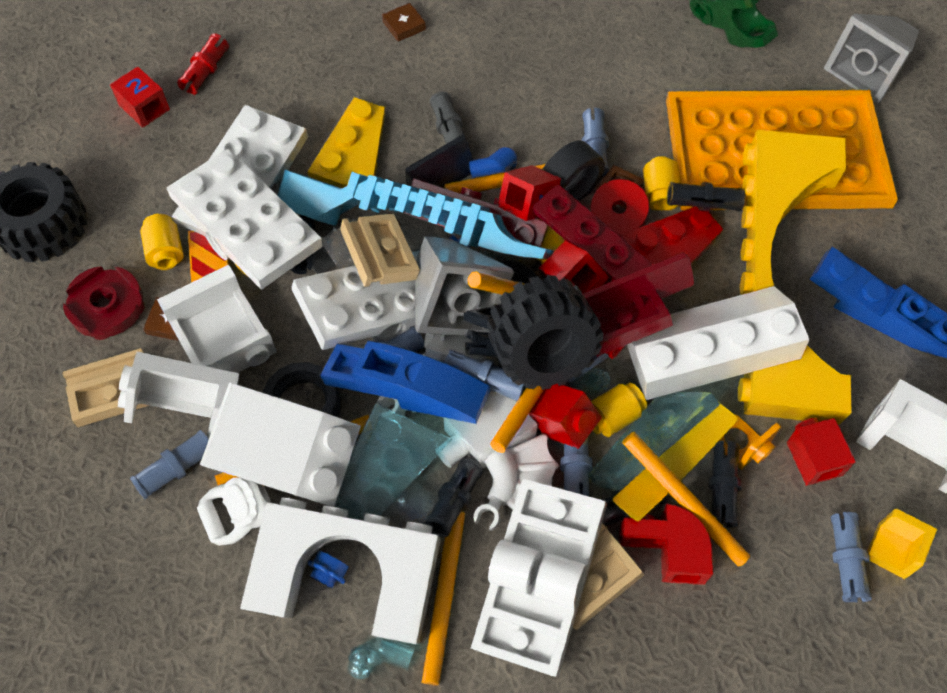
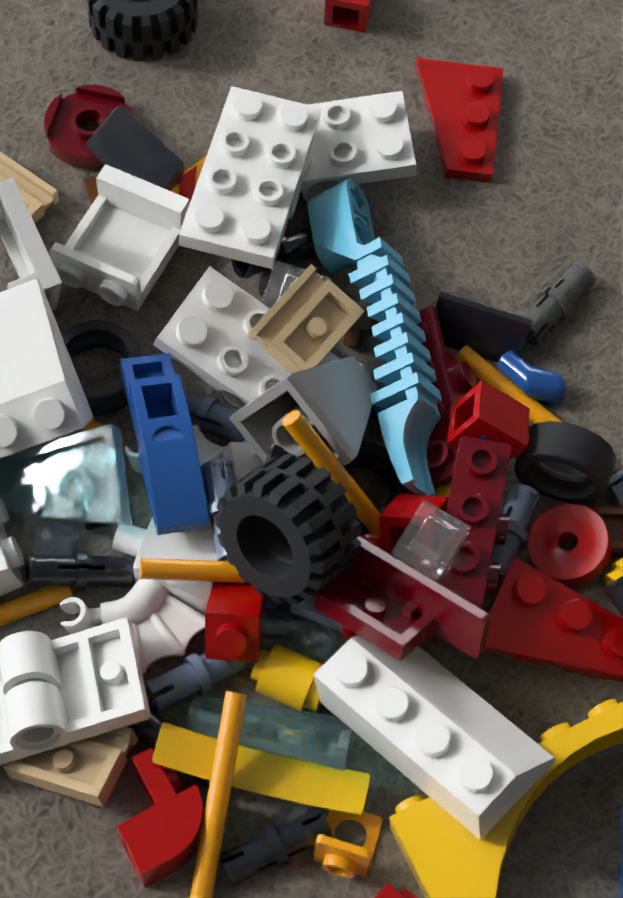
camera: 55 degrees right, 0 degrees up
(150, 279) = (135, 150): none -> black slope
(161, 242) = (190, 128): yellow brick -> none
(203, 64) = (444, 23): red pin -> none
(278, 91) = (464, 114): none -> red wing
(351, 145) = (449, 227): yellow wing -> none
(604, 259) = (431, 541): none -> clear slope

